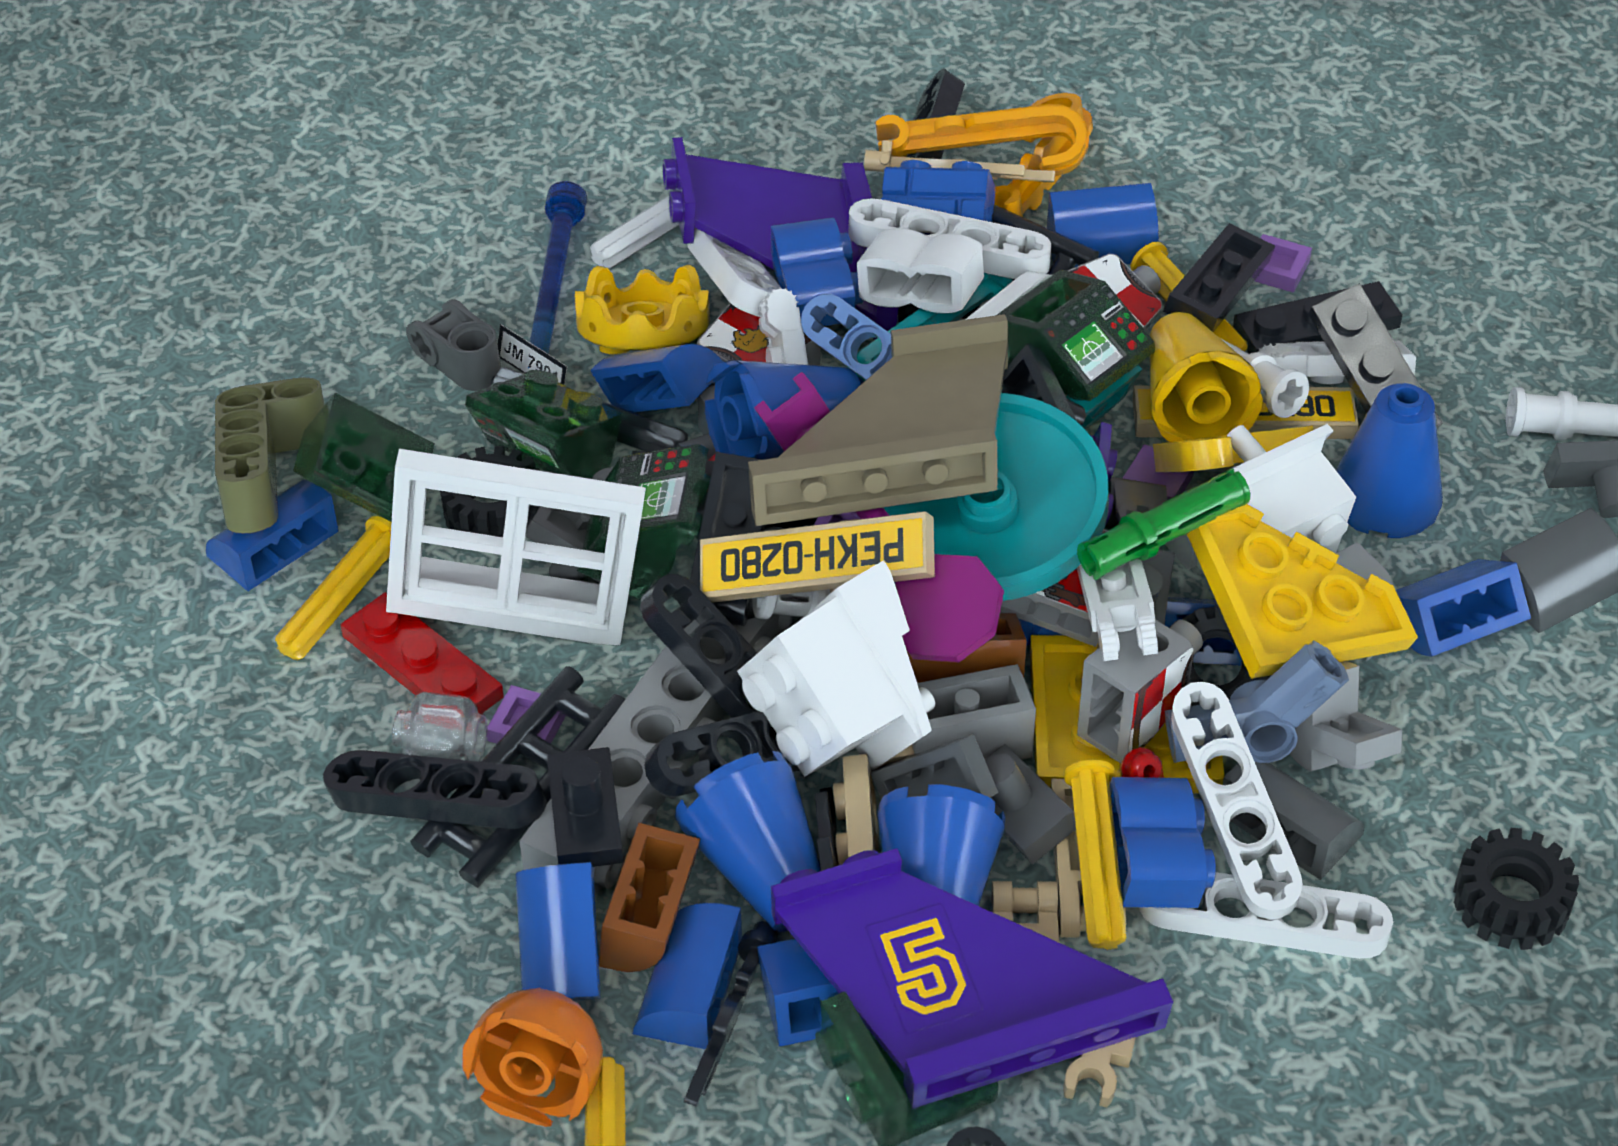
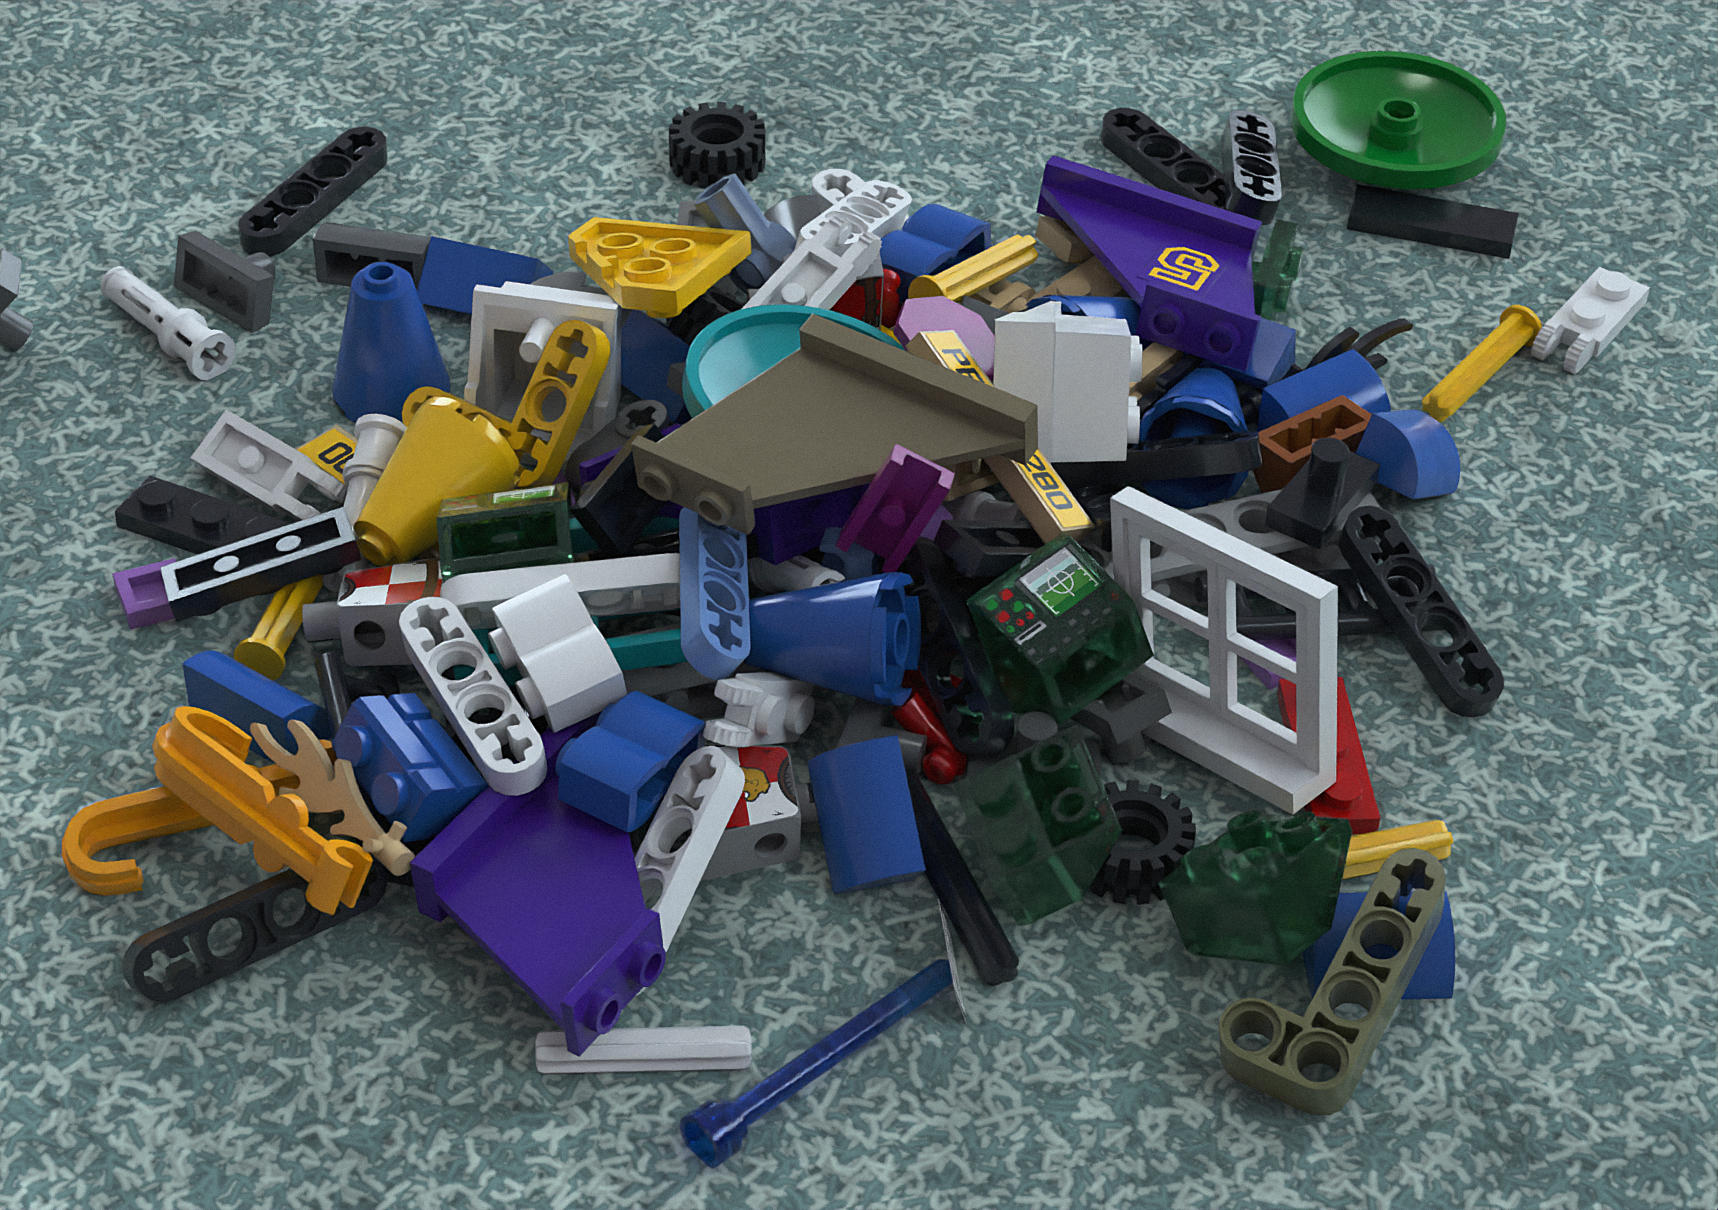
camera: 140 degrees left, 5 degrees down
(441, 727) = (1377, 655): clear head -> none
(457, 346) = (1011, 1019): dark grey piece -> none
(524, 1046) = (1489, 410): orange cylinder -> none
(644, 313) = (777, 865): yellow plate -> none
(1143, 533) = (719, 277): green pin -> none
(1361, 345) = (275, 416): plate -> none

